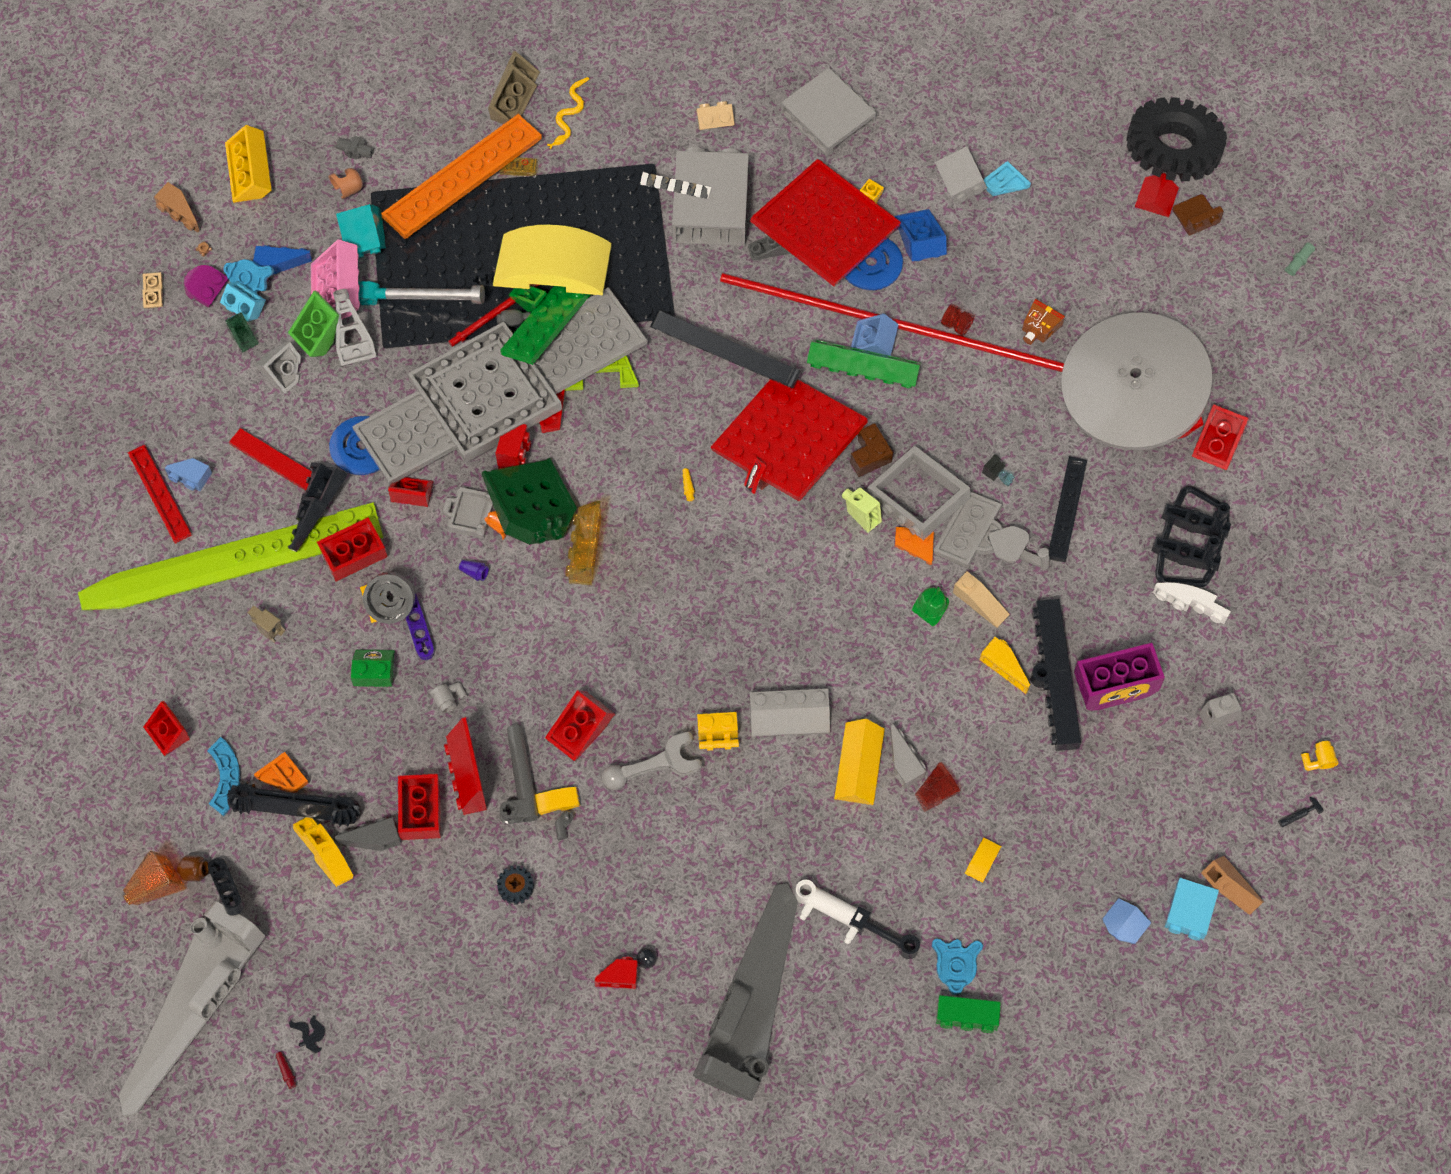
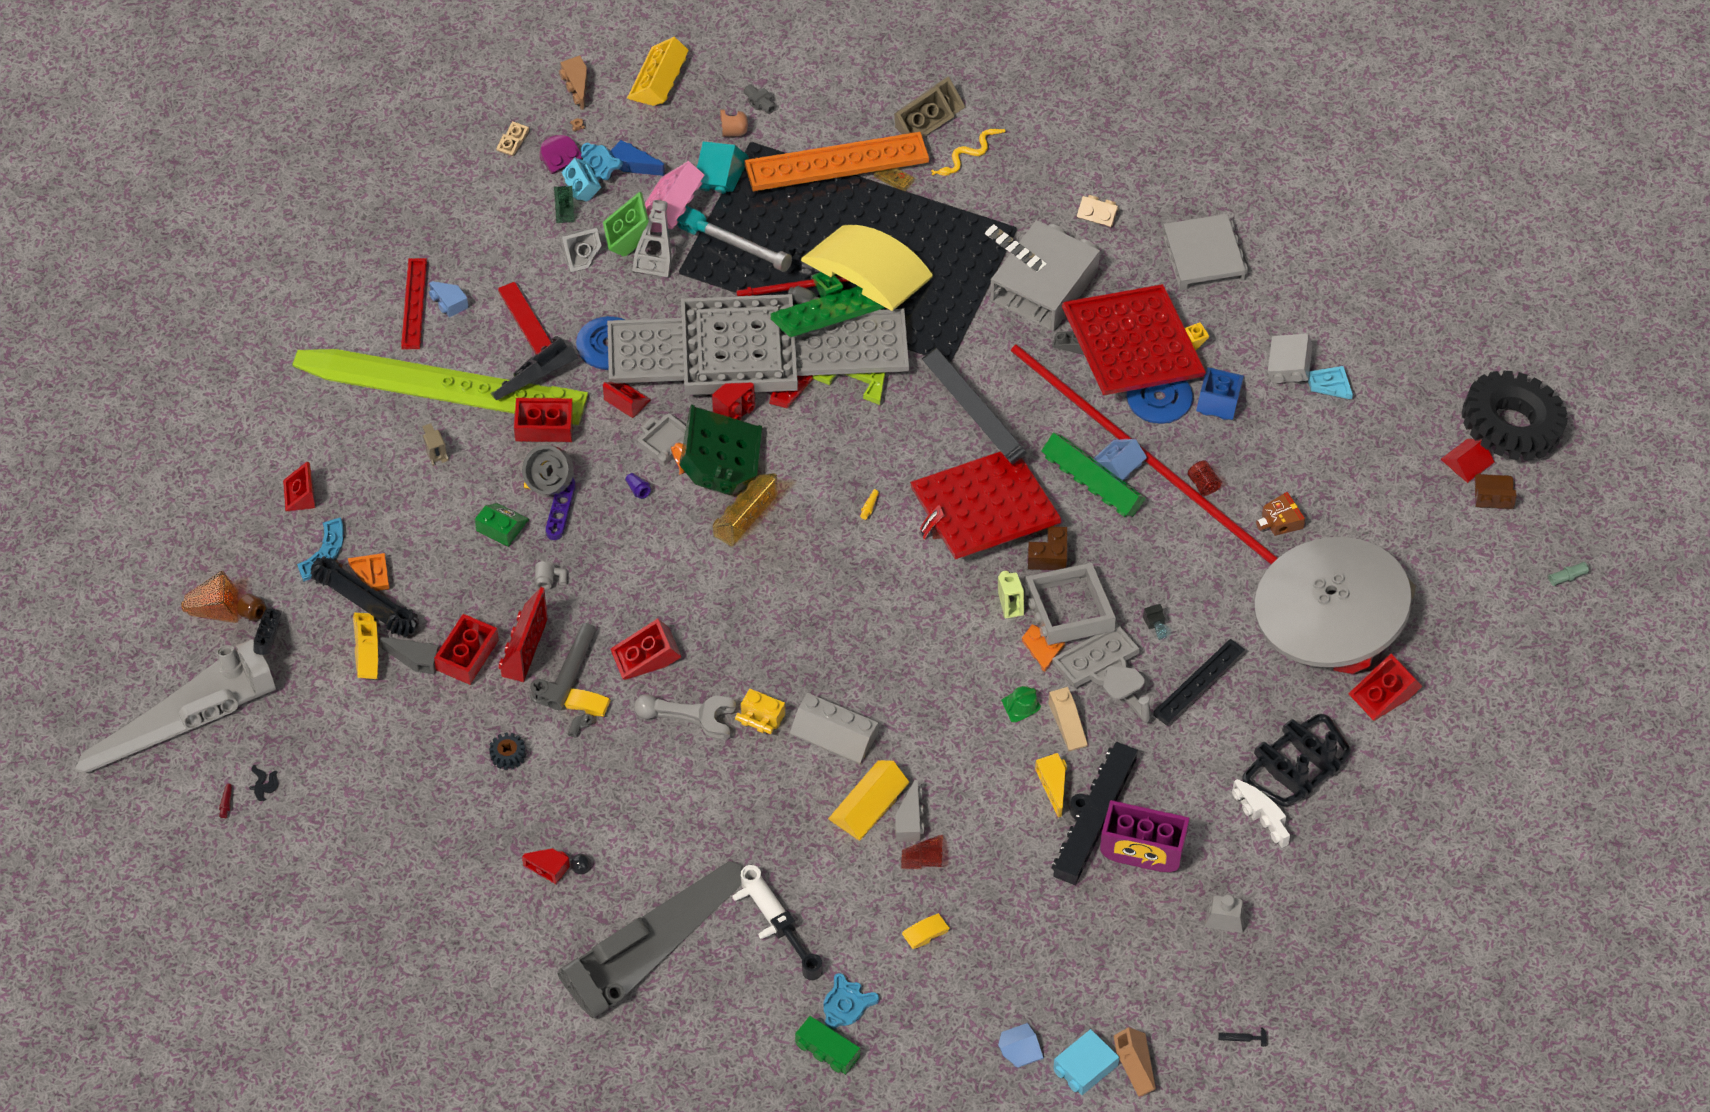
camera: 30 degrees right, 10 degrees down
(1325, 757) = (1299, 996): yellow piece -> none

